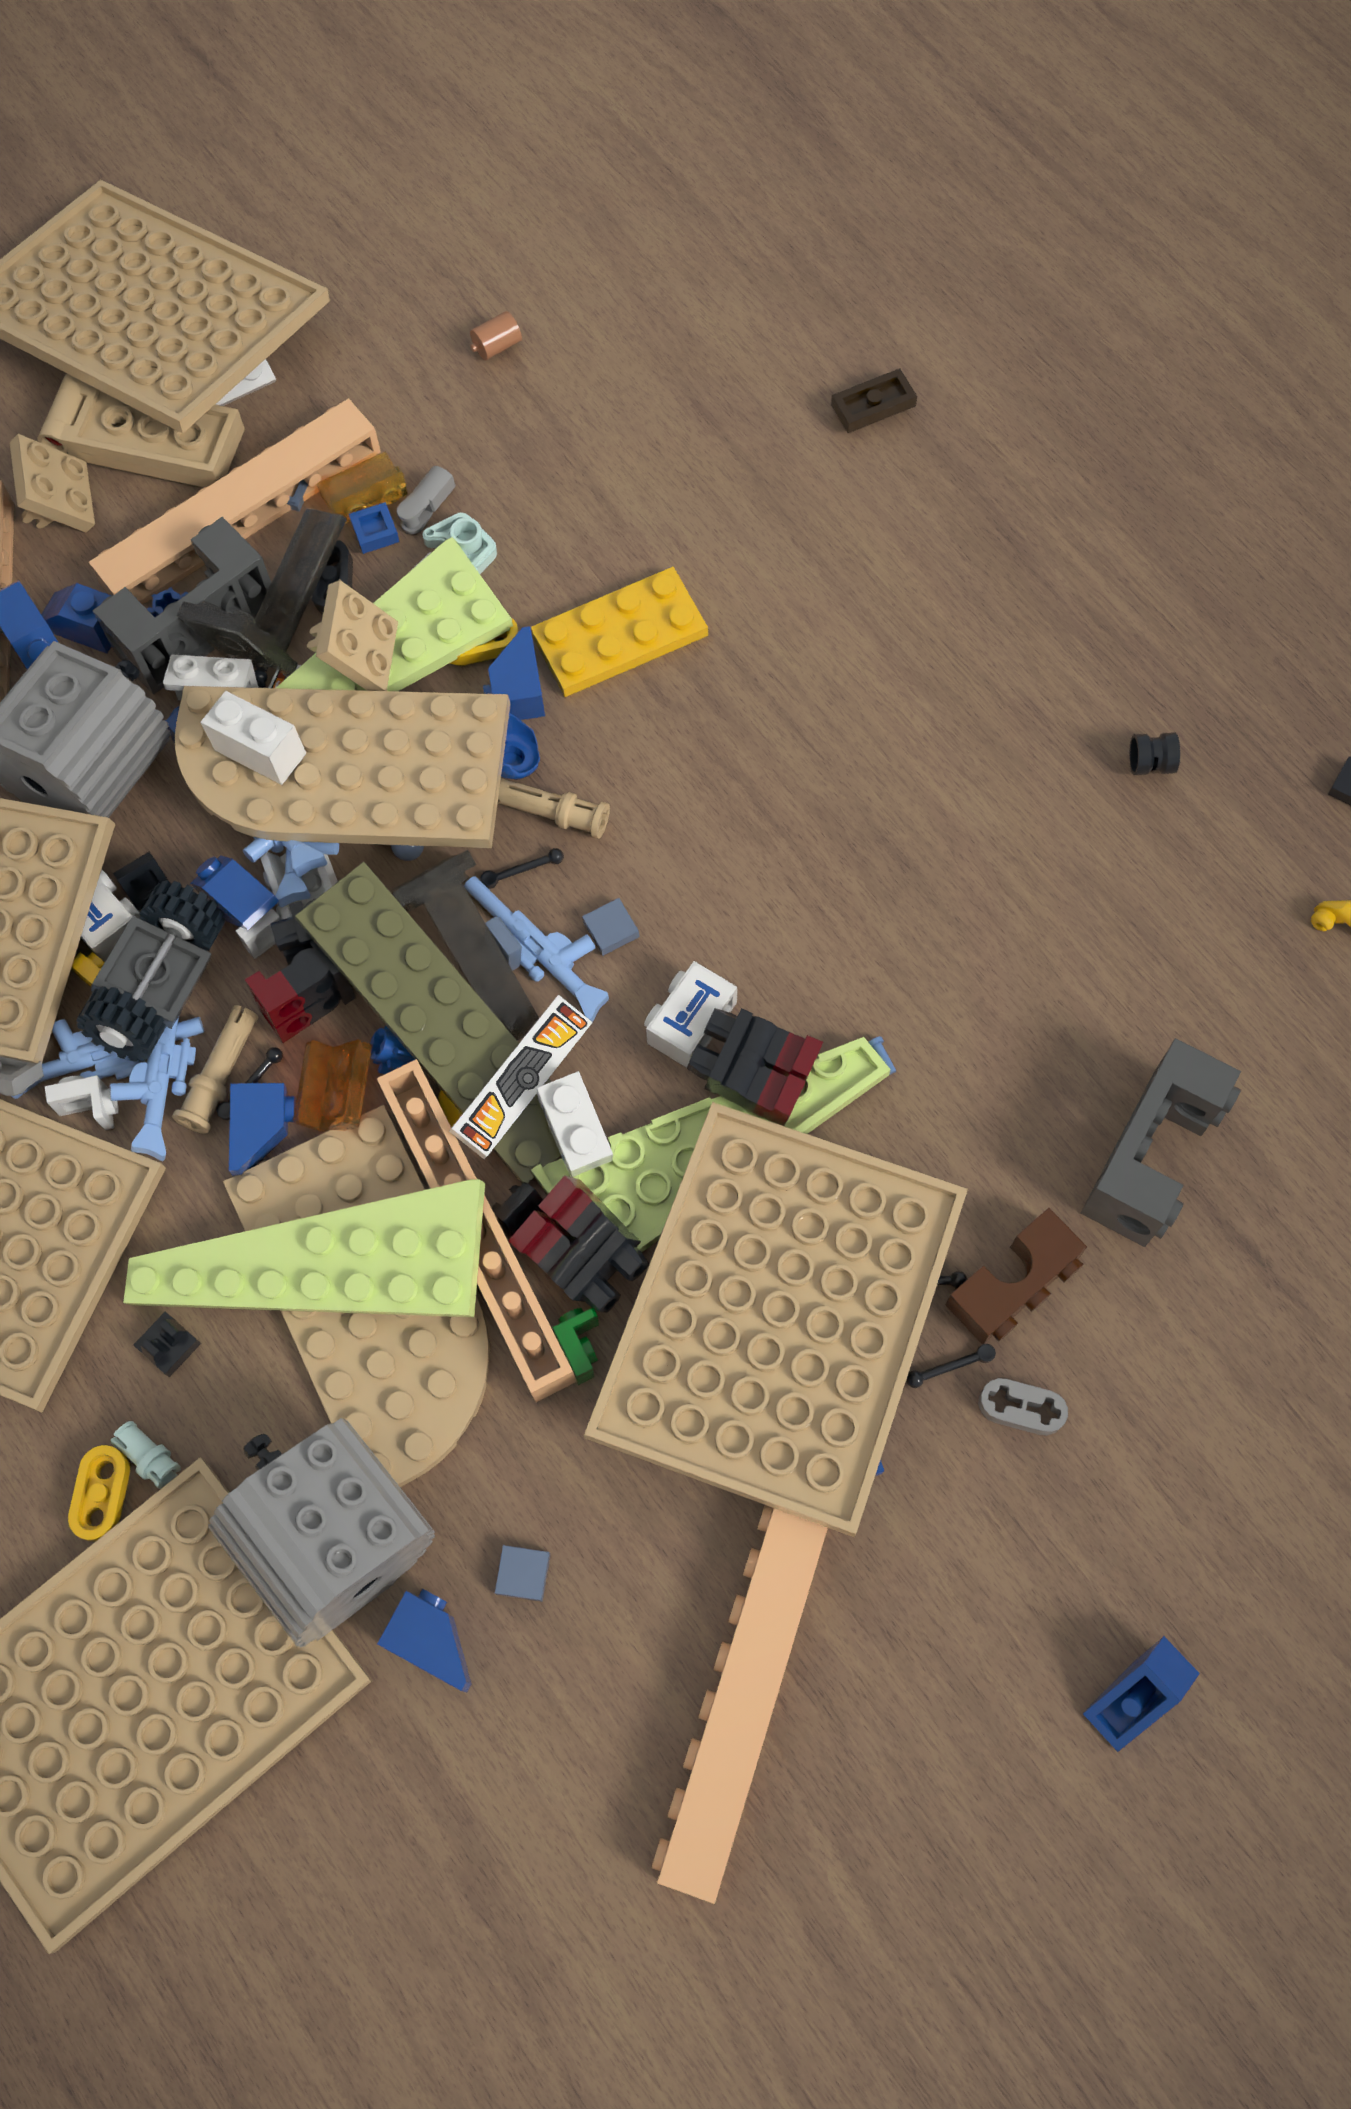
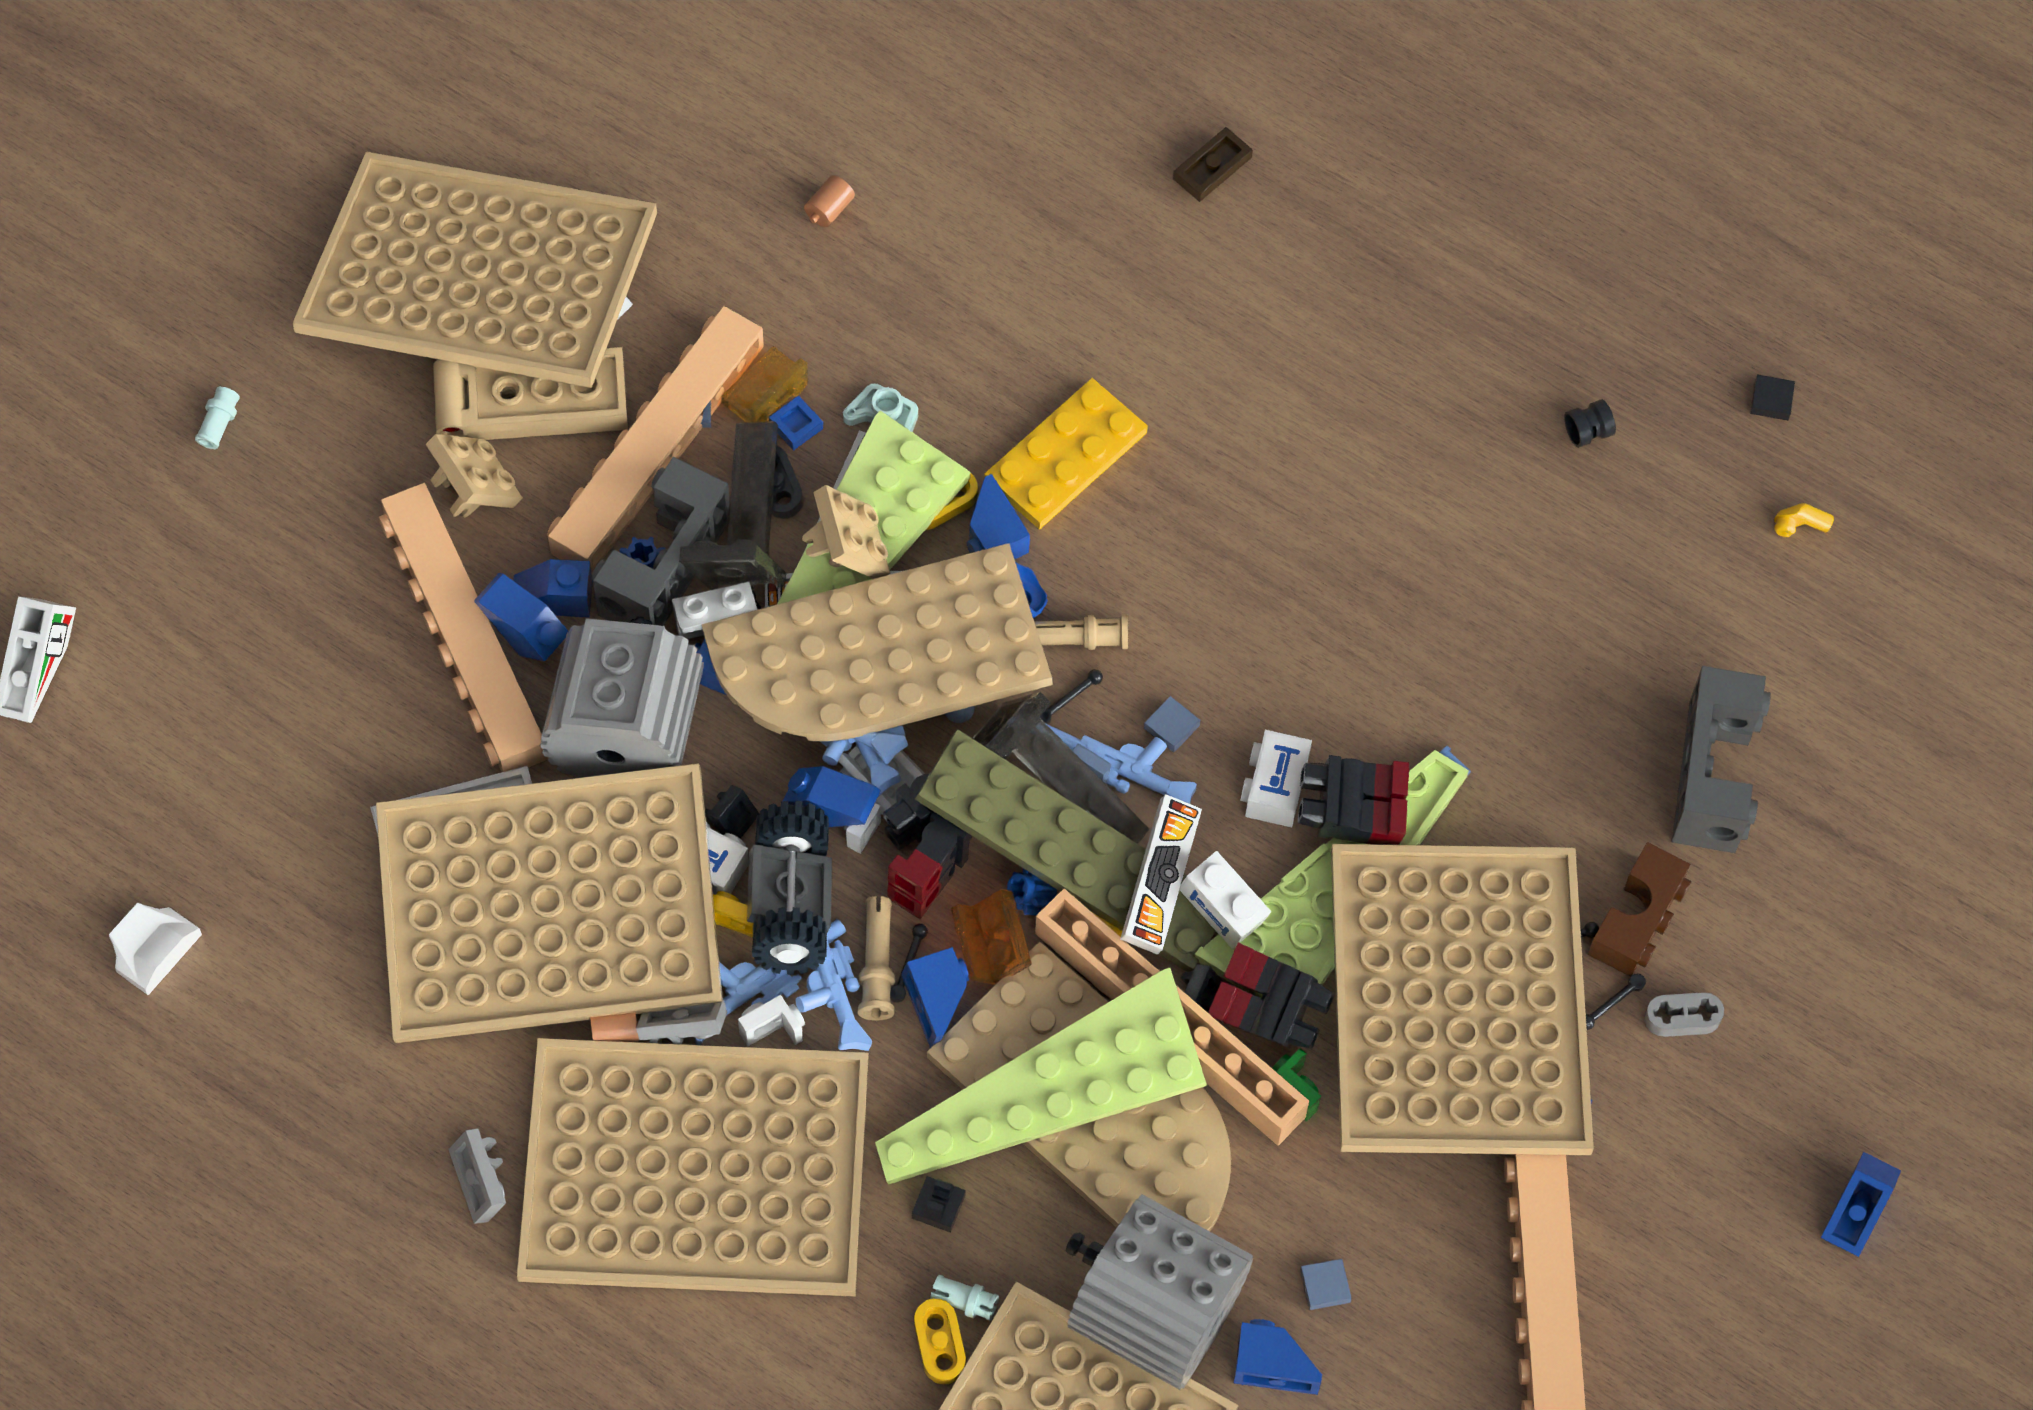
camera: 25 degrees left, 5 degrees down
(253, 737) = (805, 651): white brick -> none
(425, 500) = (831, 381): light grey bar -> none

